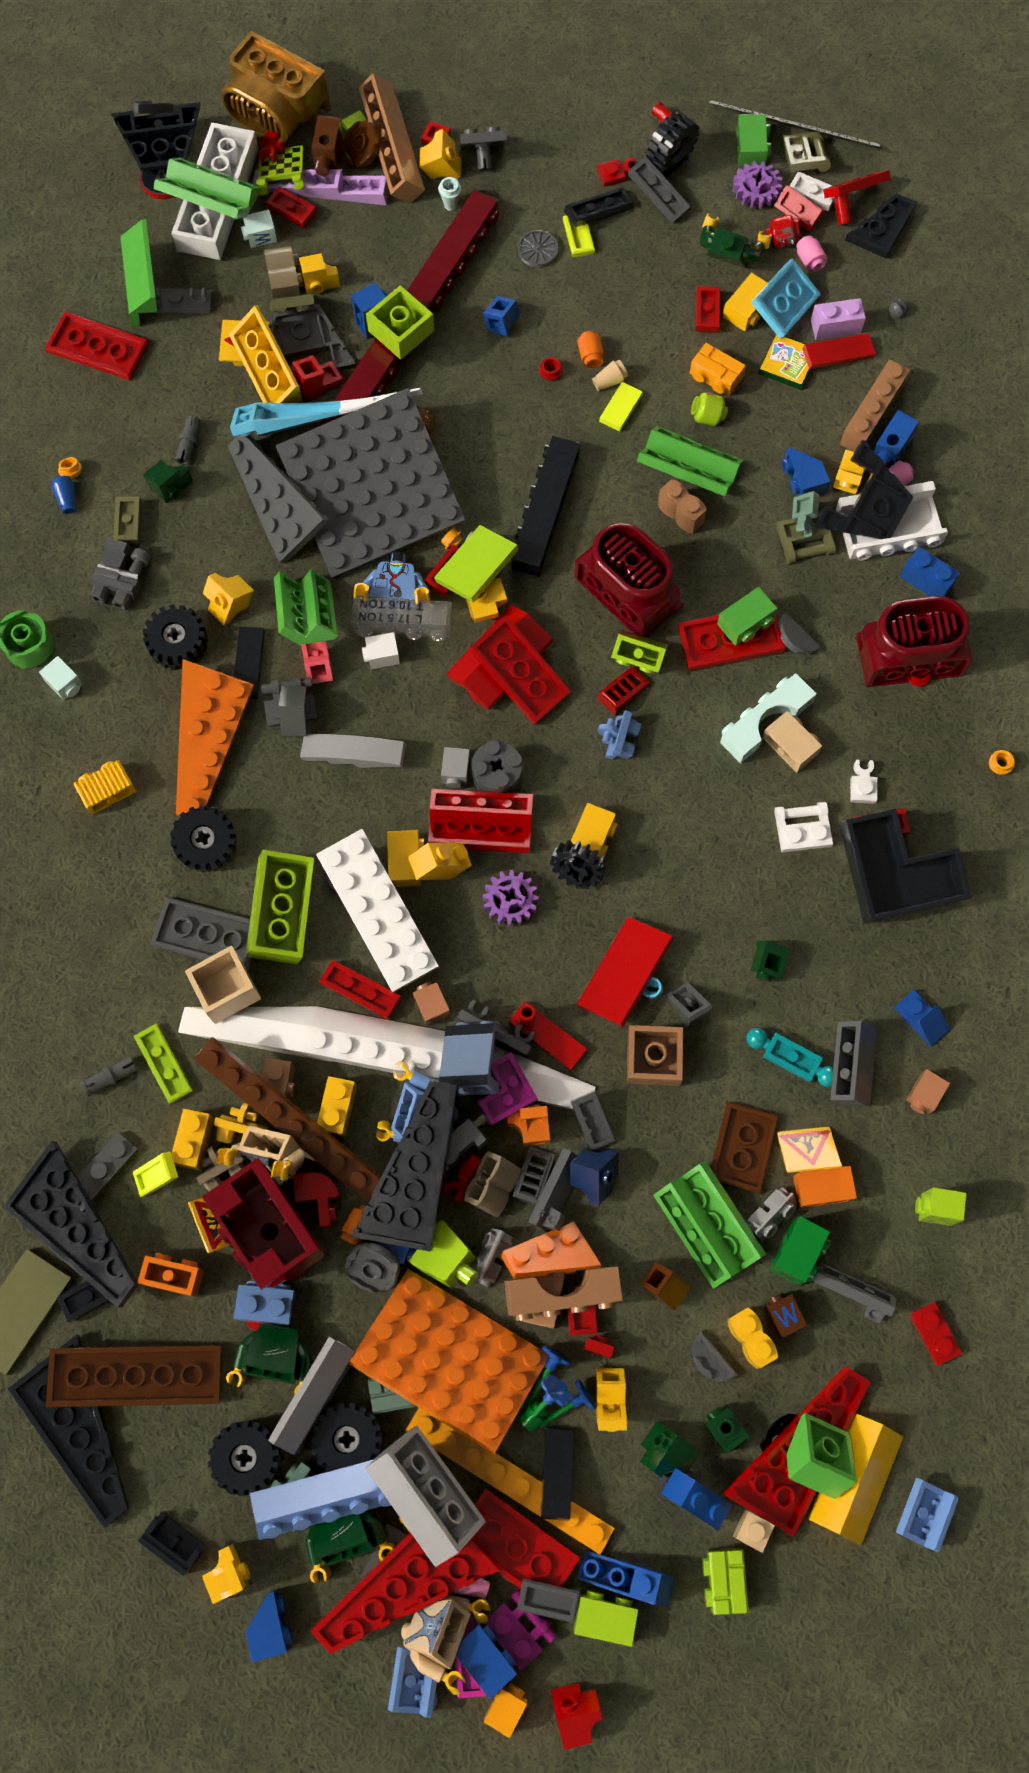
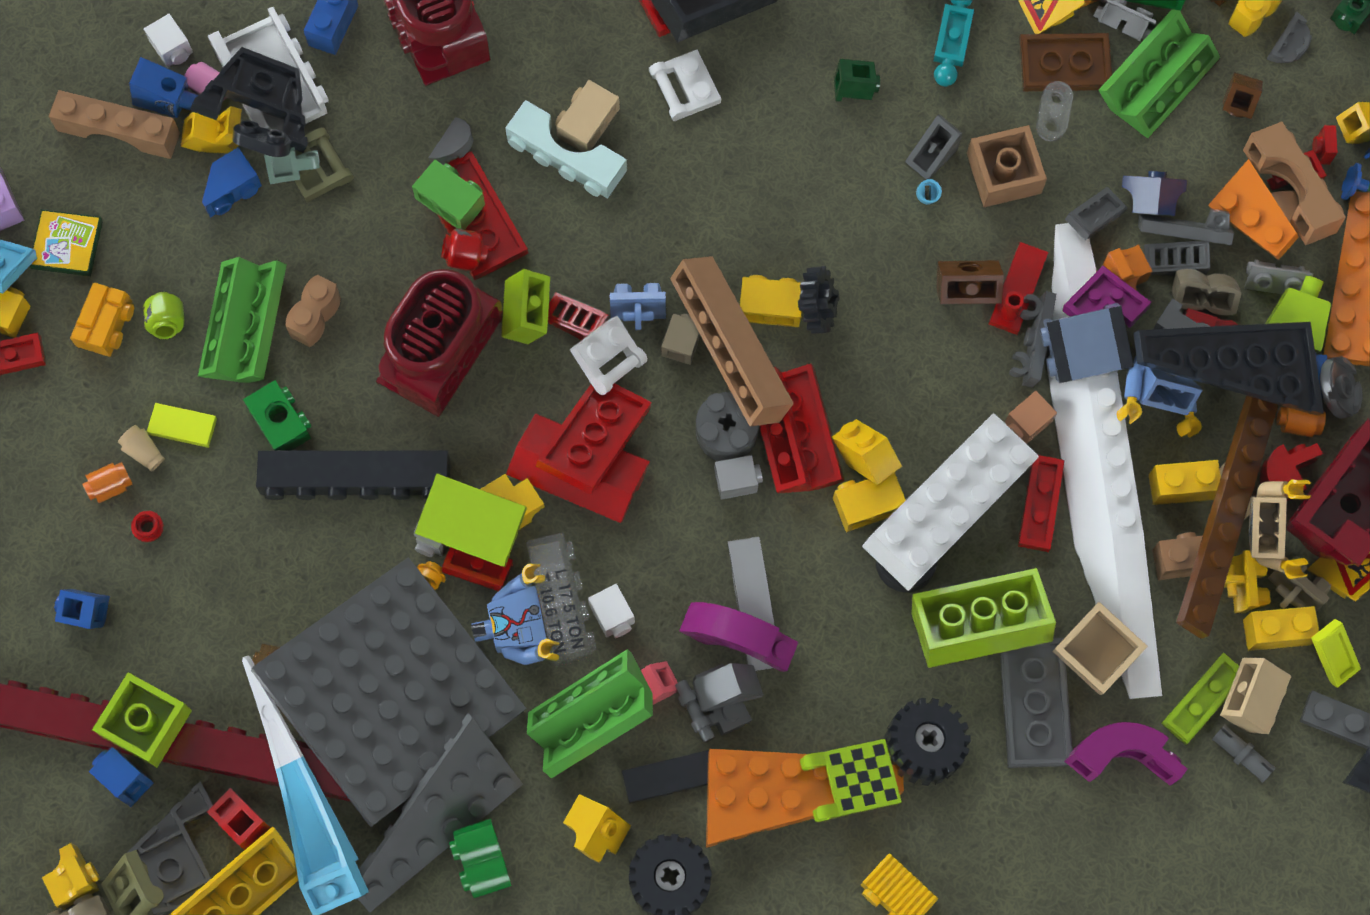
camera: 110 degrees left, 0 degrees up
(146, 1098) = (1255, 695): none -> tan brick
(151, 981) = (1127, 741): none -> magenta arch
(193, 779) = (858, 778): none -> lime flag
(234, 518) = (481, 859): none -> green brick
(327, 725) = (740, 631): none -> magenta arch
(519, 903) = (865, 368): medium lavender gear -> none
(560, 784) = (731, 341): none -> medium nougat brick
(560, 991) = (970, 282): none -> reddish brown brick
(581, 759) = (681, 339): none -> dark tan brick
(588, 695) = (601, 347): none -> white plate
(611, 456) = (269, 402): none -> green brick
(625, 971) = (919, 223): red tile -> none
(697, 615) = (464, 249): none -> red head
(697, 1118) = (1054, 112): none -> clear plate
(825, 489) = (266, 141): none -> black plate
(838, 351) = (40, 184): red tile -> none
(863, 786) = (616, 34): white plate -> none
(938, 458) = (168, 41): none -> white brick

